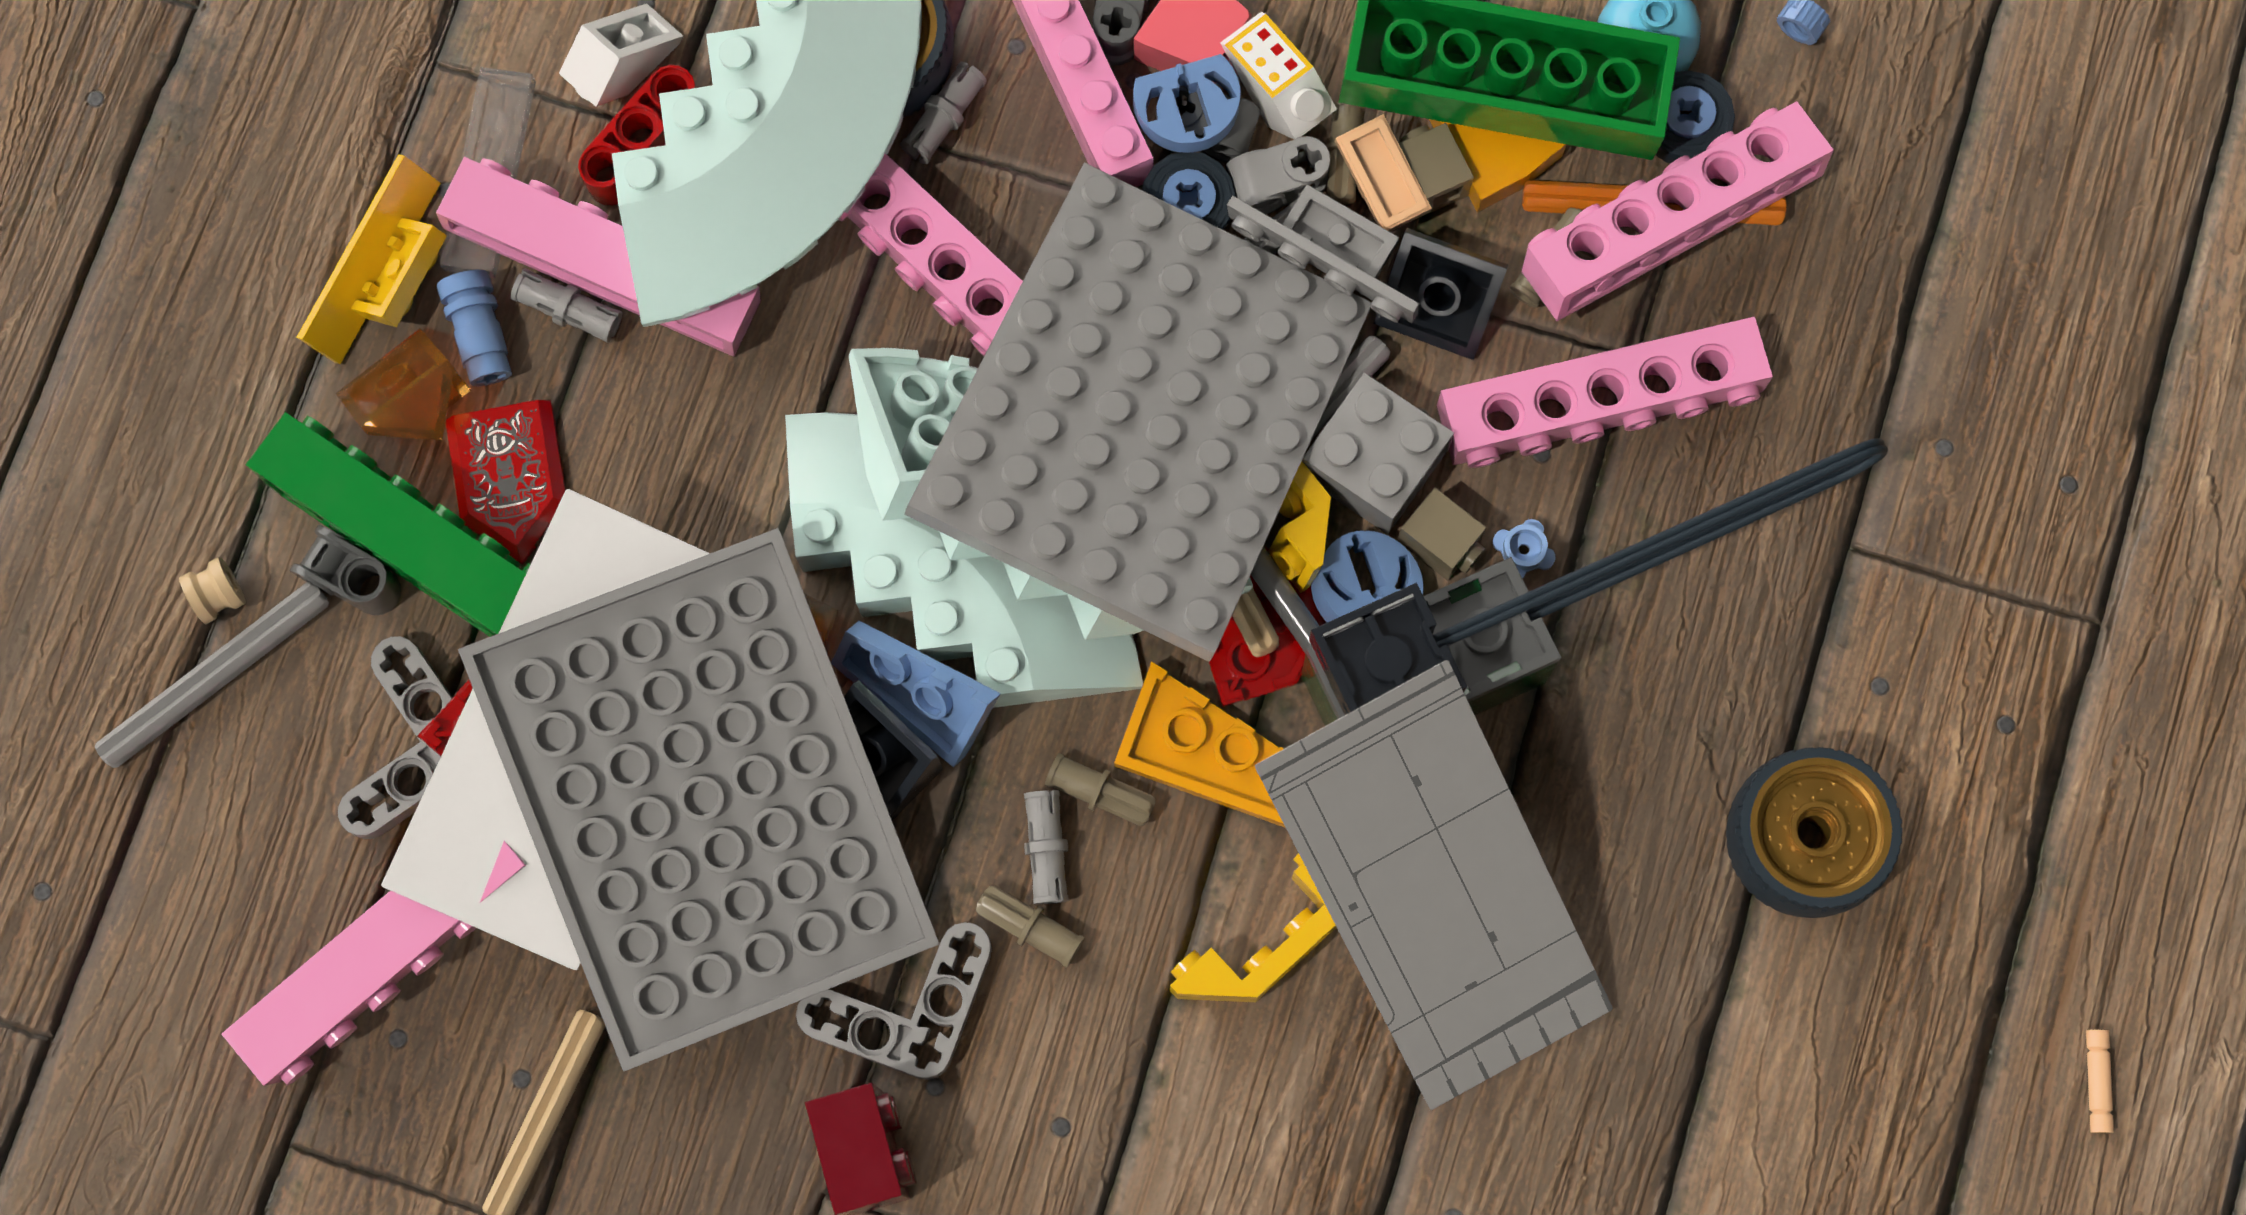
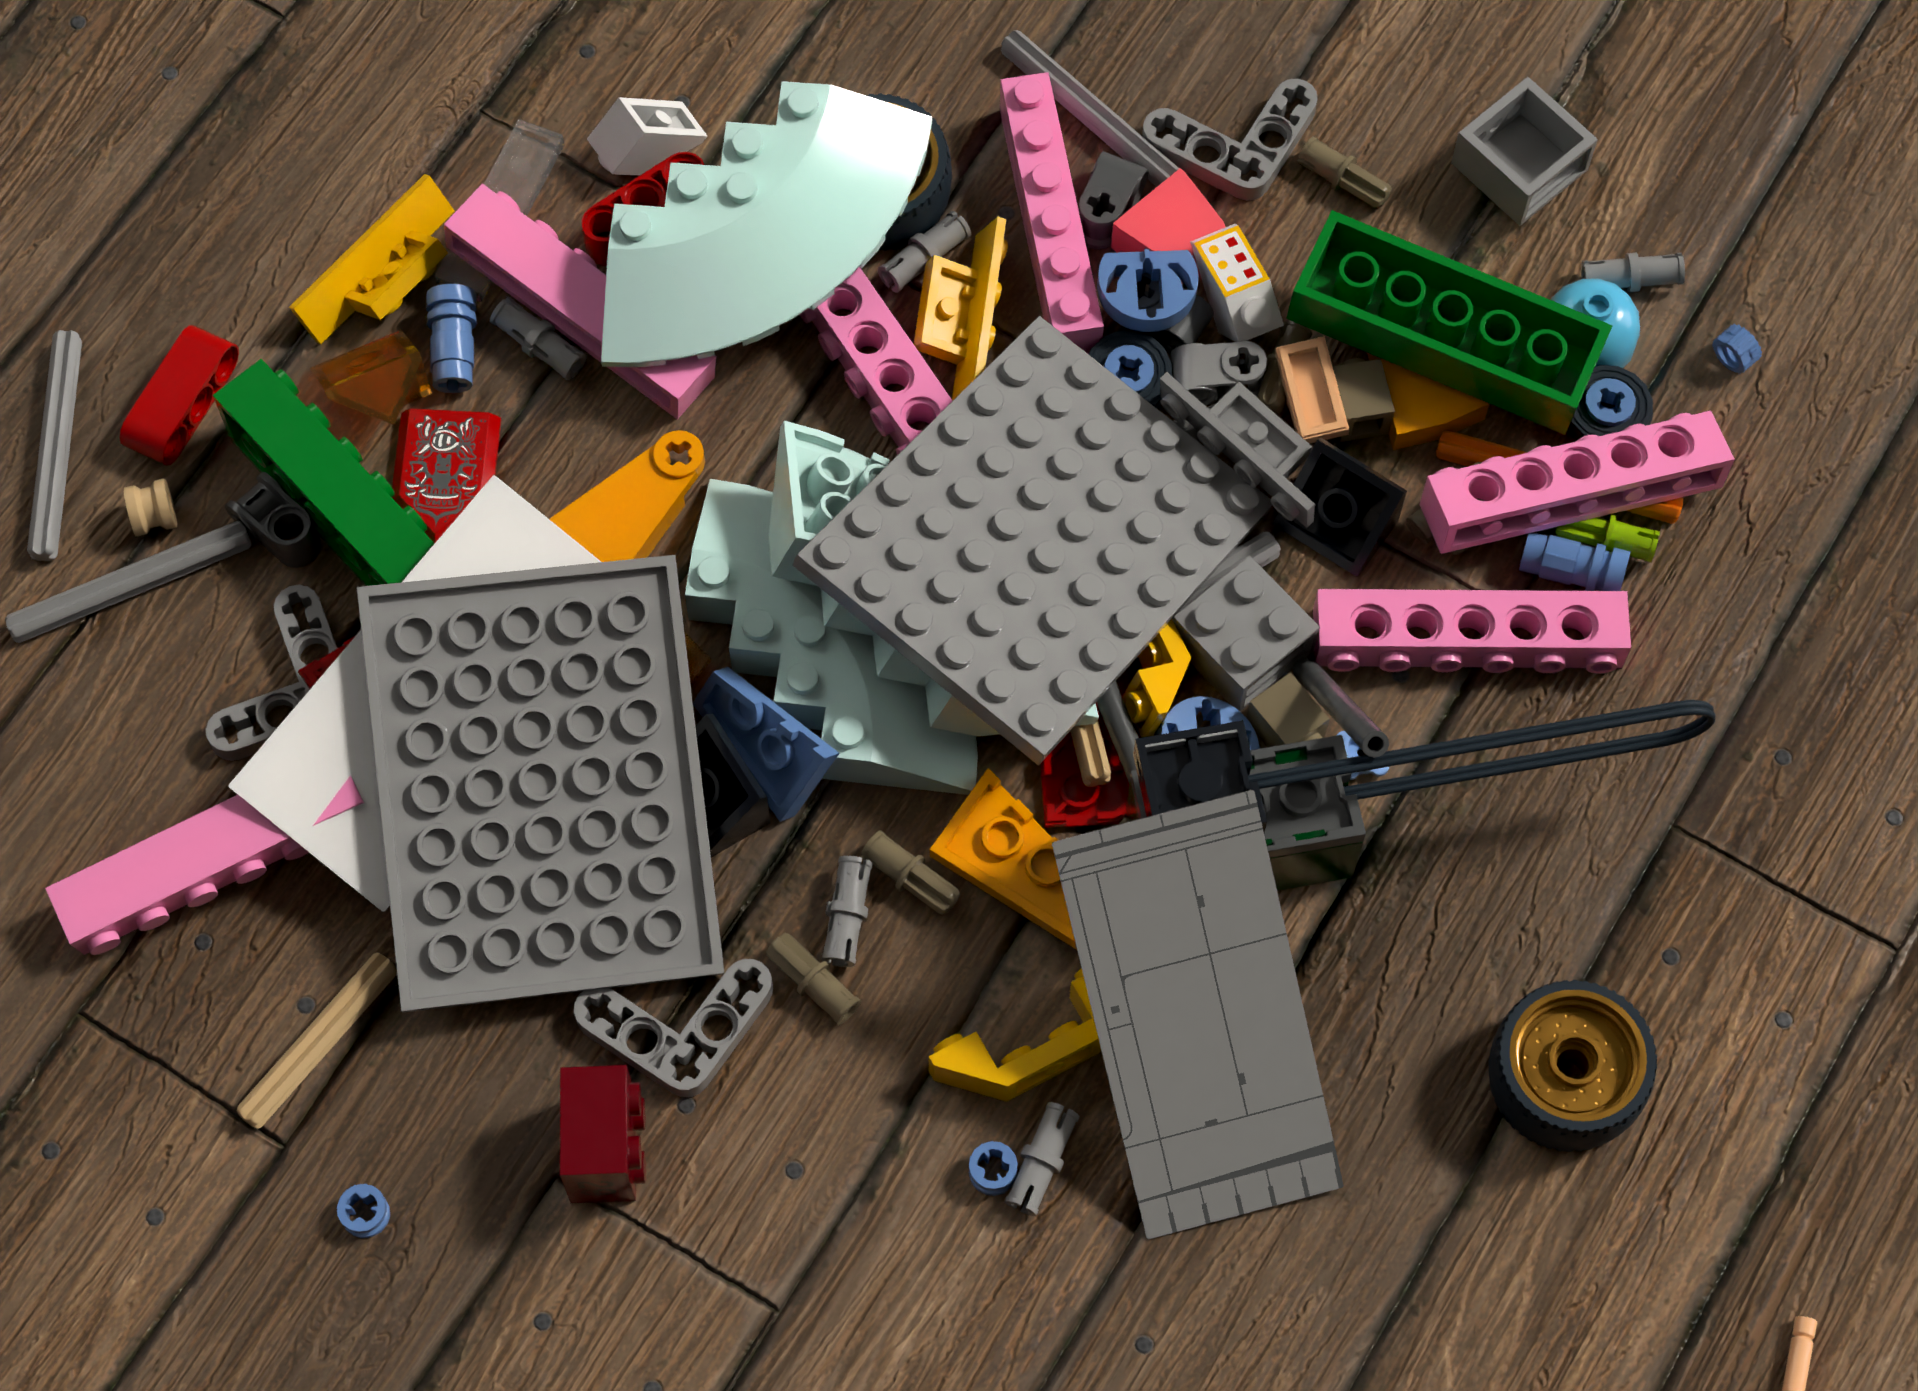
camera: 10 degrees right, 10 degrees down
(92, 544) = (54, 446): none -> light grey axle
(207, 459) = (179, 395): none -> red beam
(712, 471) = (636, 503): none -> light orange piece
(997, 168) = (960, 304): none -> yellow bracket
(1274, 1067) = (977, 1173): none -> medium blue bush
(1307, 1057) = (1042, 1159): none -> light grey pin
(1501, 523) = (1341, 707): none -> dark grey piece
(1691, 294) = (1574, 563): none -> medium blue axle
(1726, 255) = (1613, 533): none -> lime axle

